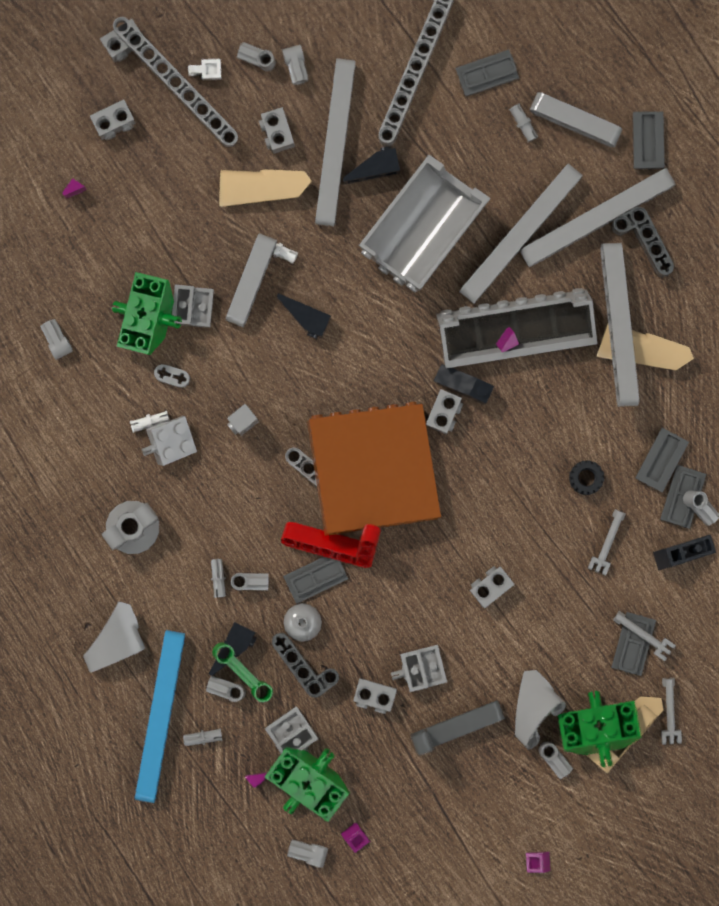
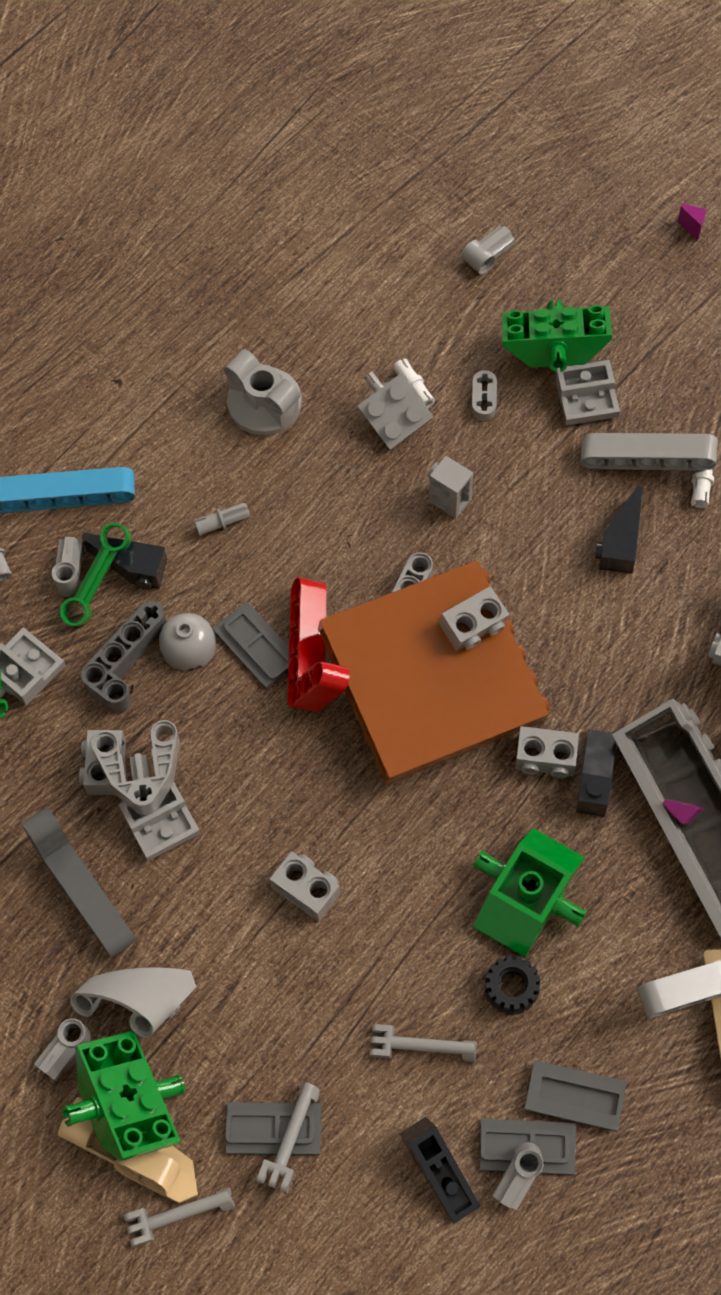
camera: 75 degrees right, 20 degrees down
(117, 639) = (106, 411): light grey panel -> none
(253, 581) = (227, 558): light grey piece -> none
(347, 435) = (470, 614): none -> light grey brick
(390, 689) = (164, 760): none -> light grey connector
(541, 467) = (518, 915): none -> green slope

